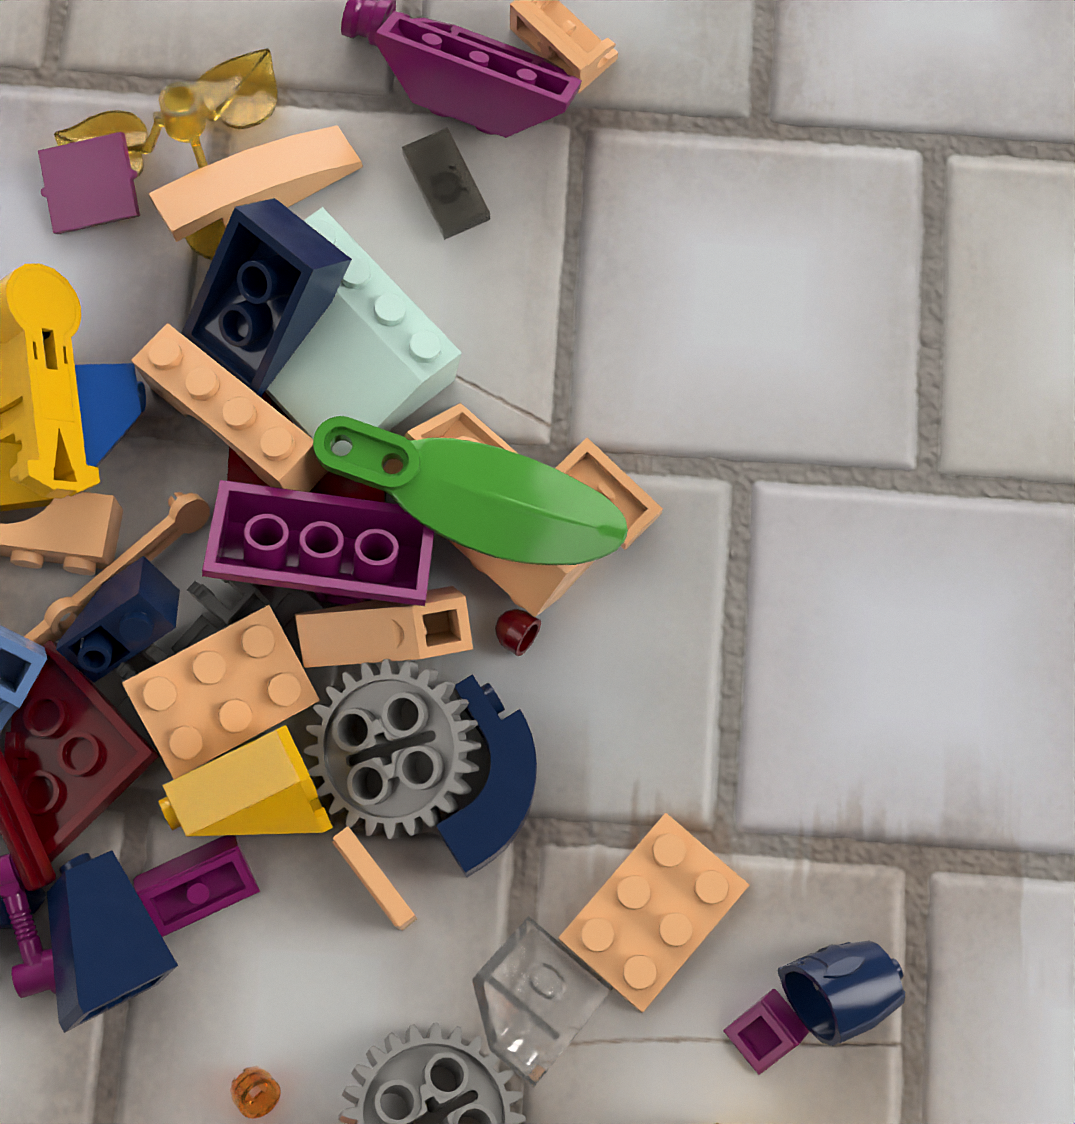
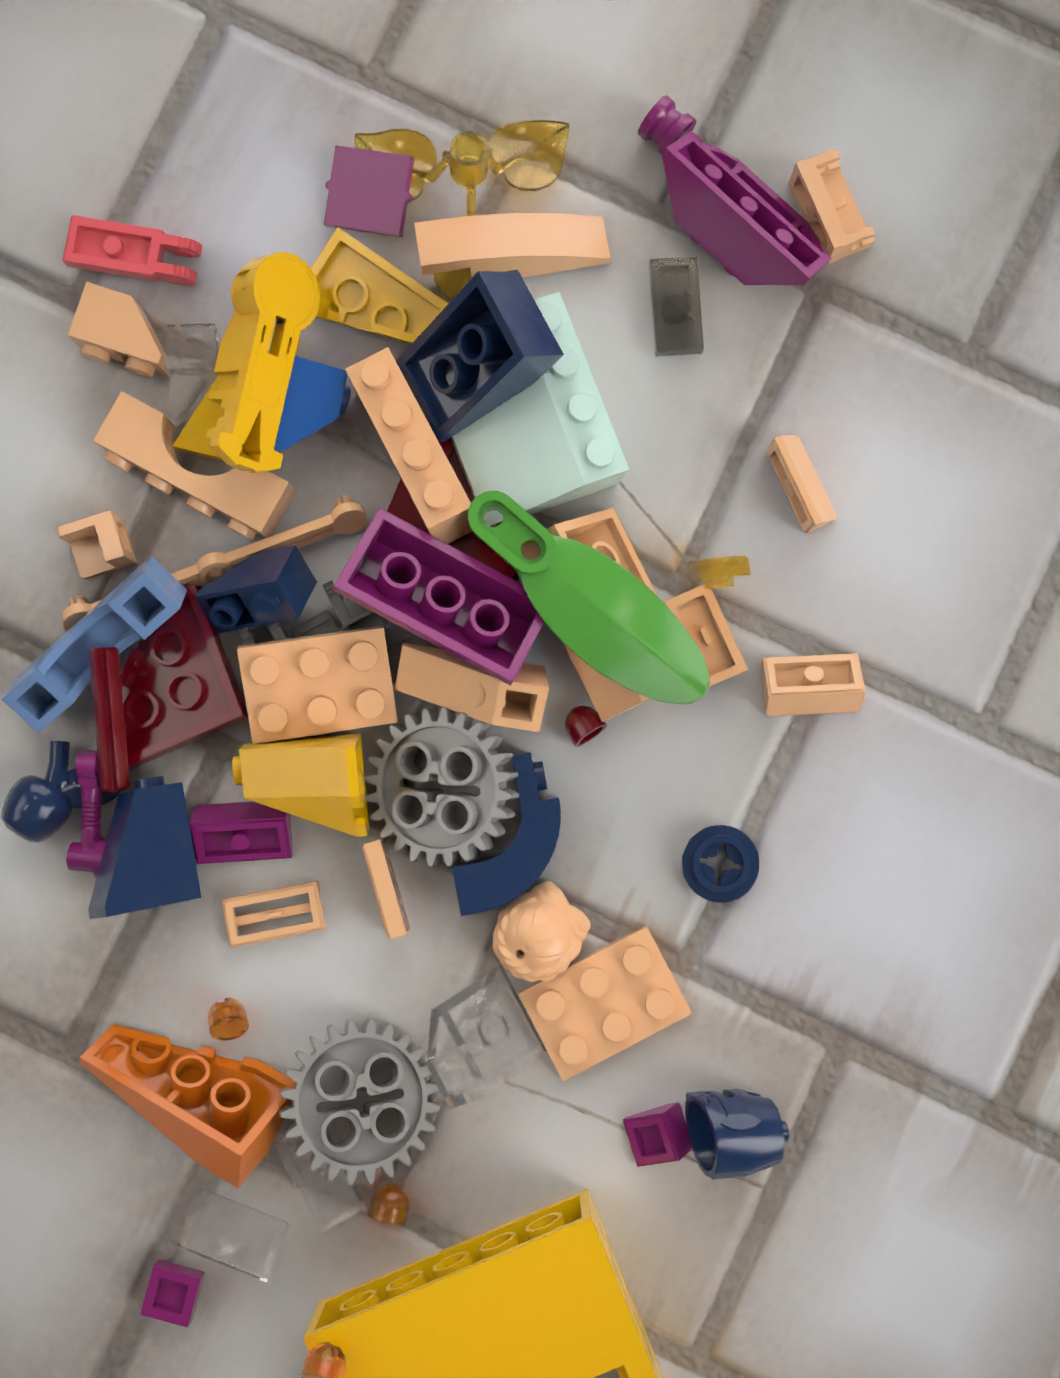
camera: 30 degrees right, 10 degrees up
(129, 280) = (371, 293): none -> yellow wing
(222, 985) = (314, 906): none -> light nougat tile
(558, 854) = (542, 928): none -> light nougat hair
(591, 417) = (718, 571): none -> clear yellow plate
(640, 308) = (800, 482): none -> light nougat slope
(729, 698) = (733, 882): none -> dark blue gear
(735, 502) = (812, 684): none -> light nougat slope

